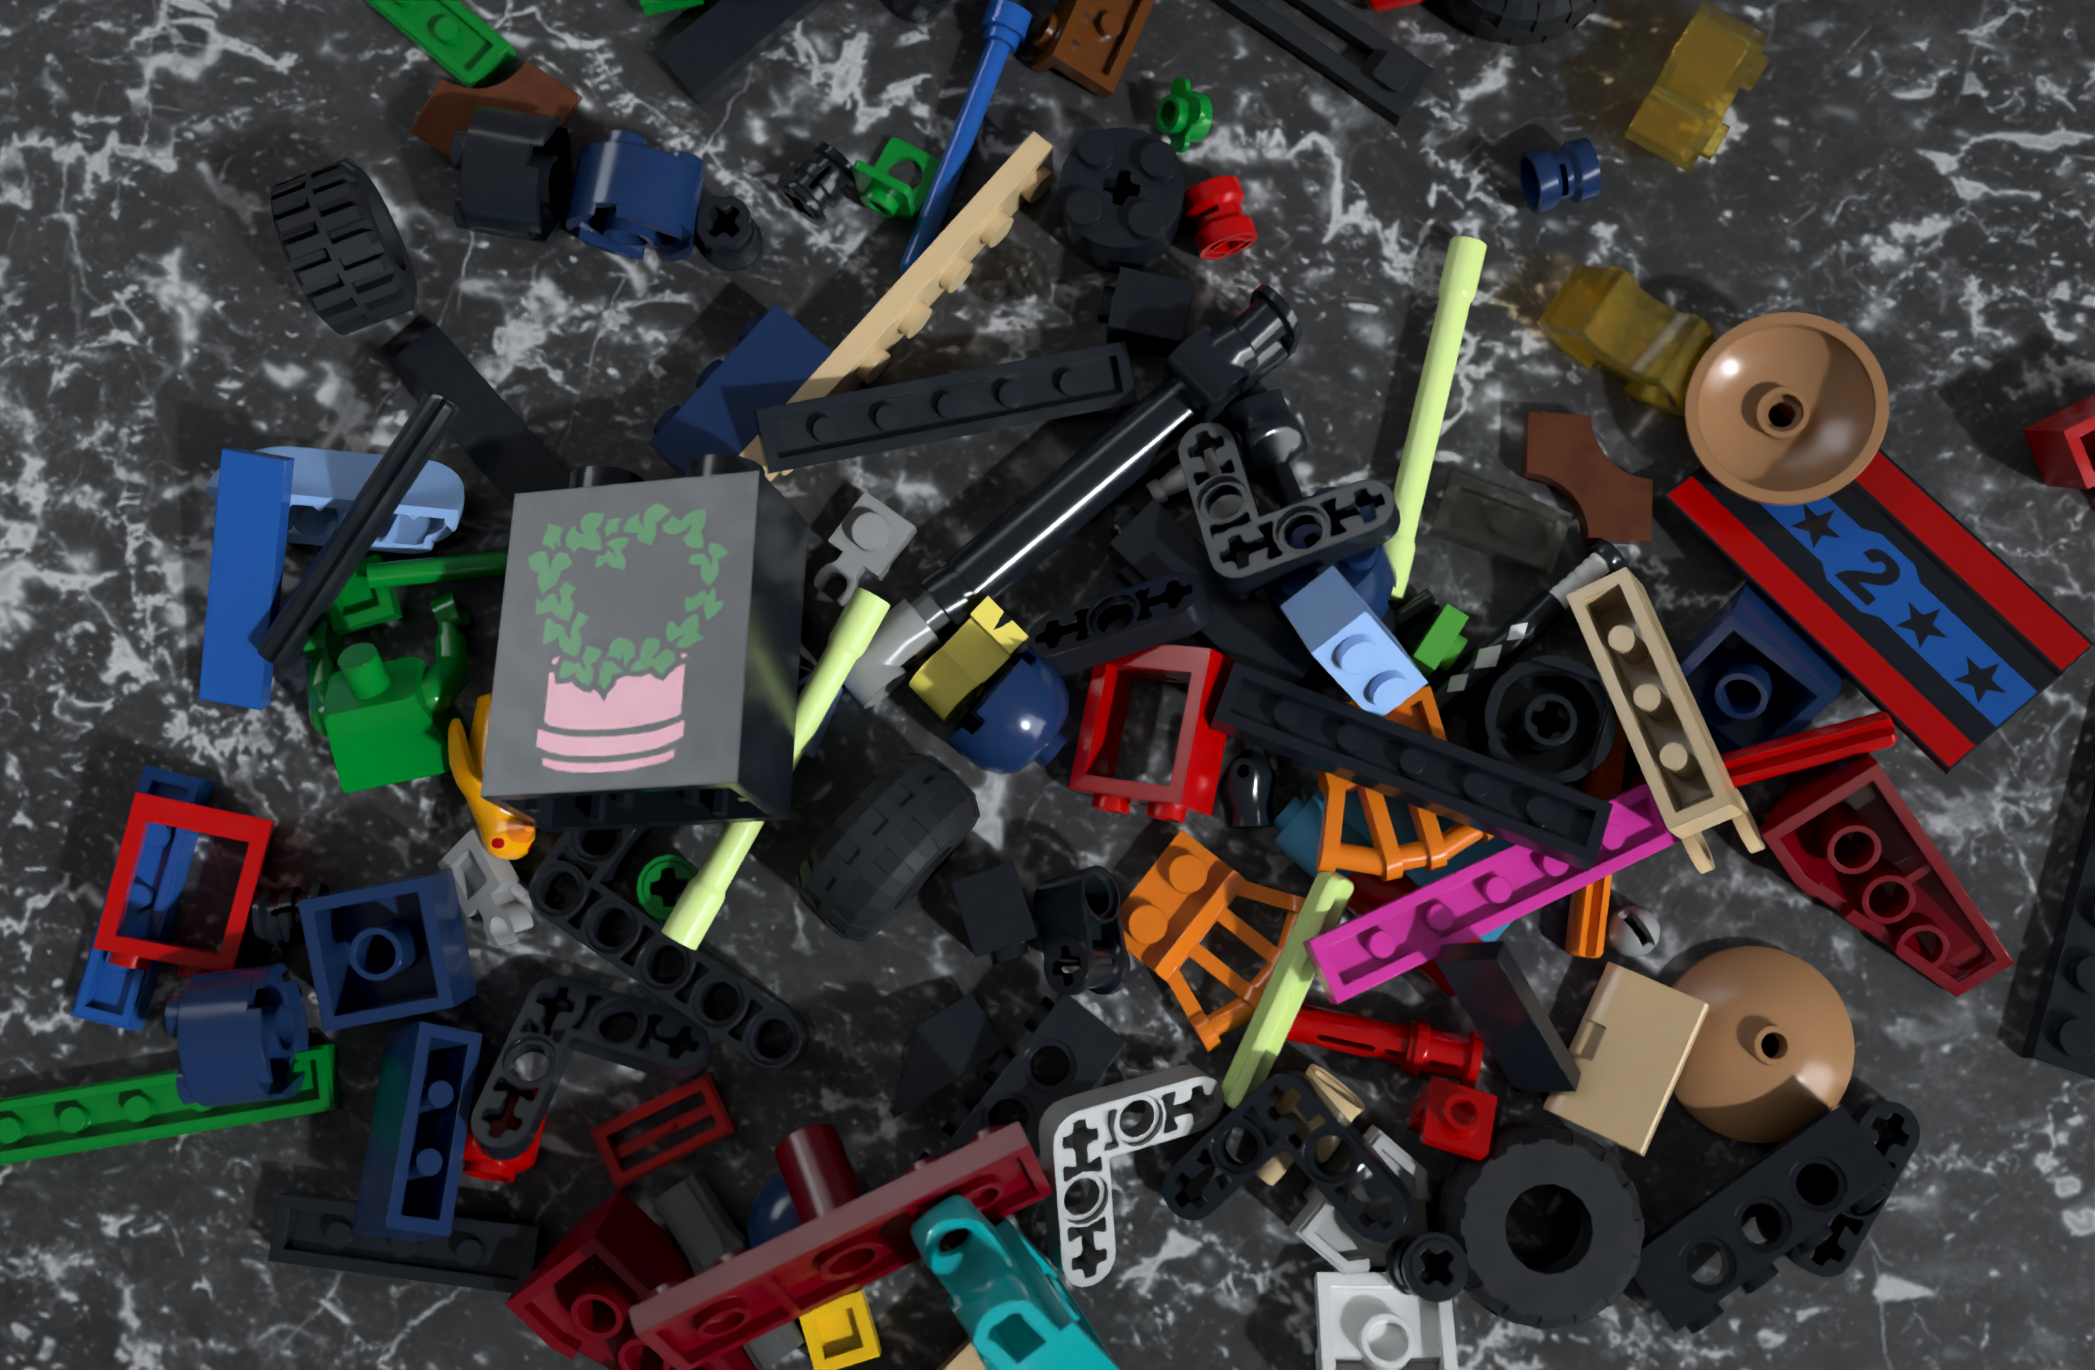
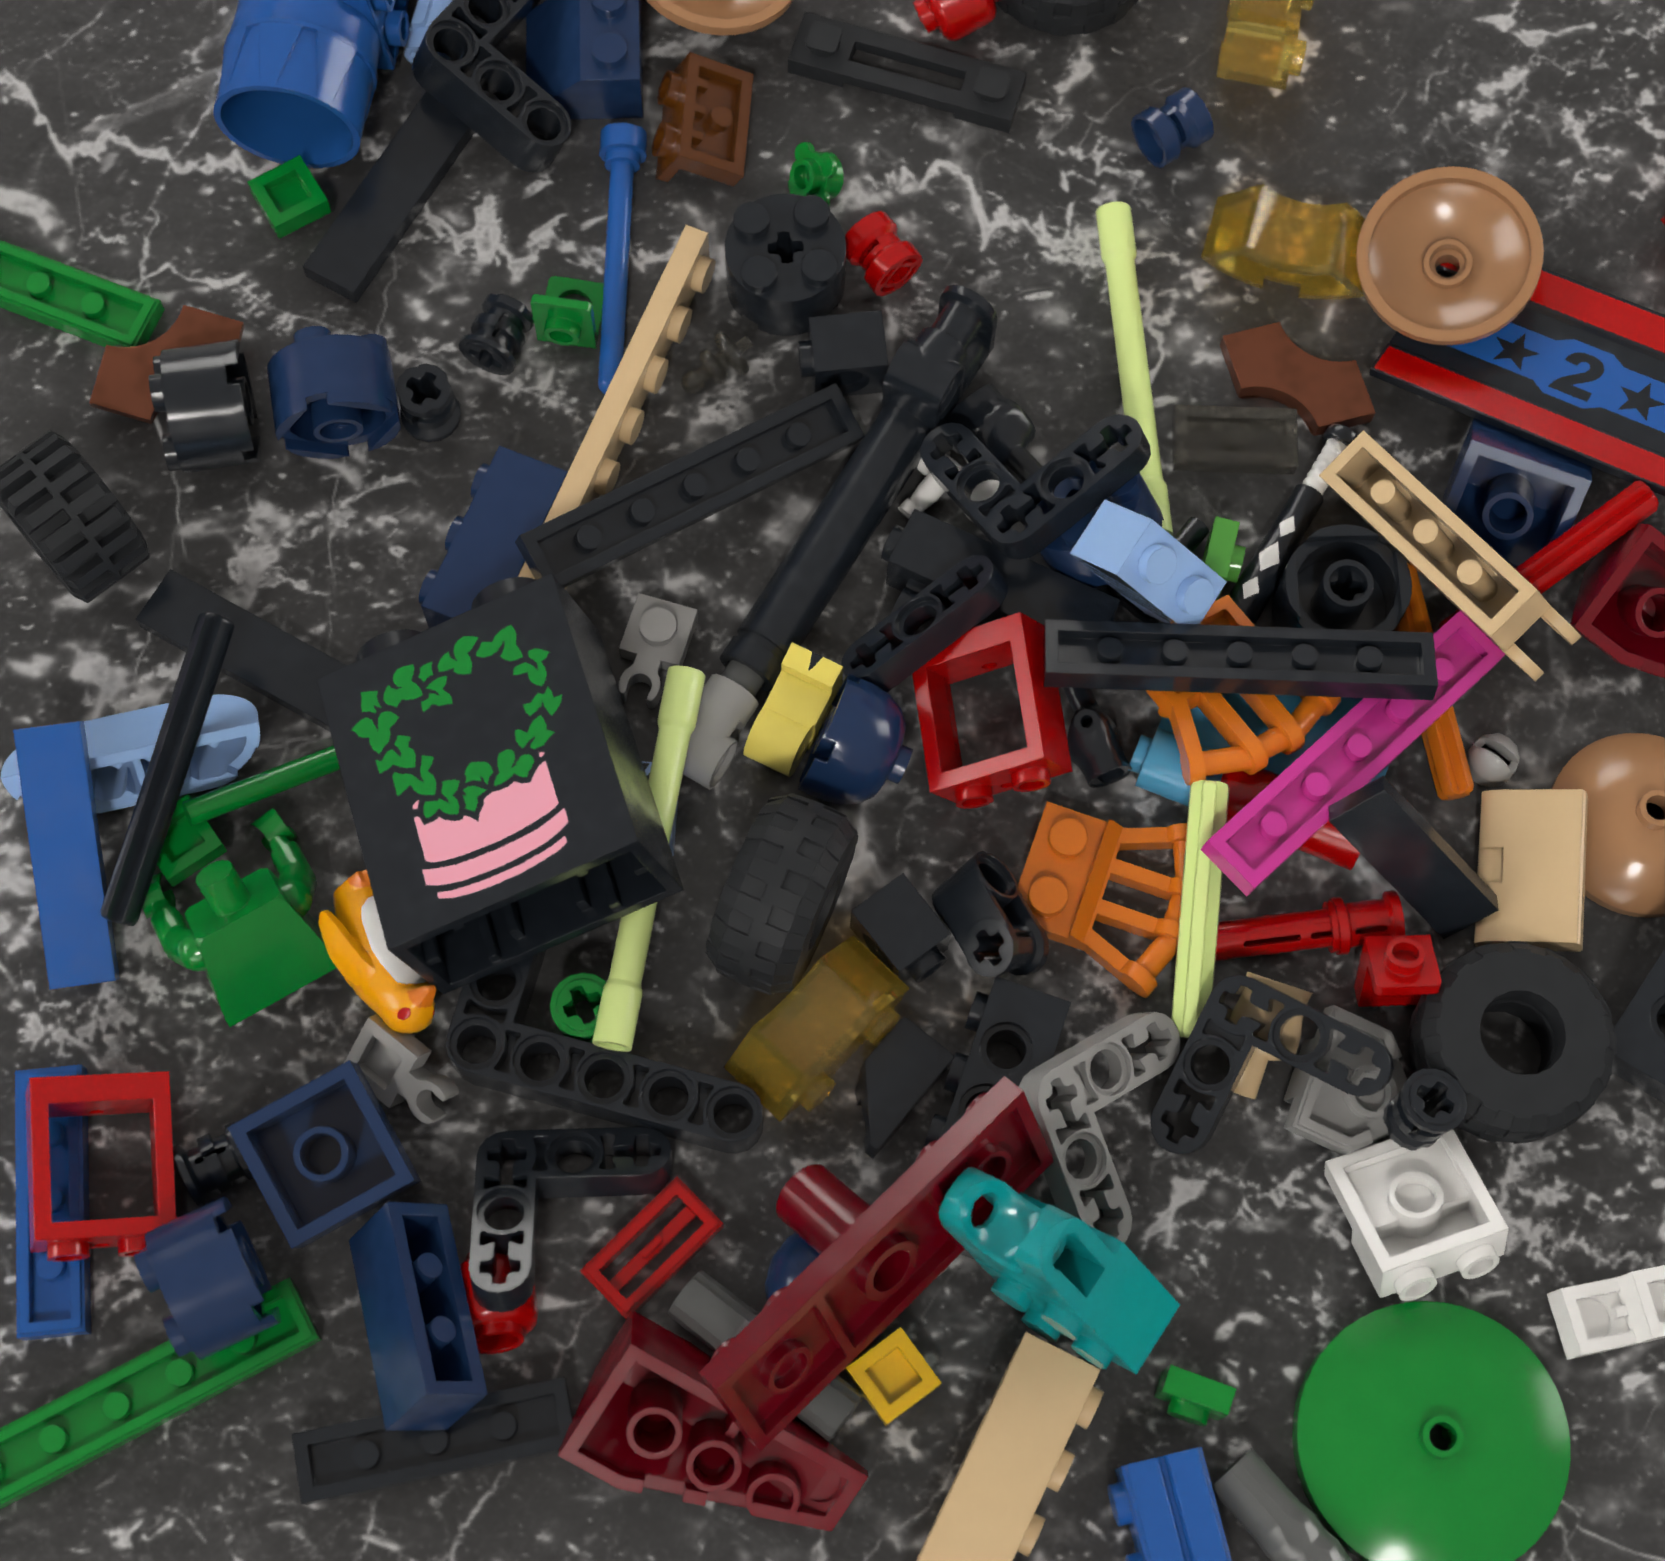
camera: 25 degrees left, 10 degrees down
(884, 979) = (818, 1028): none -> clear yellow brick

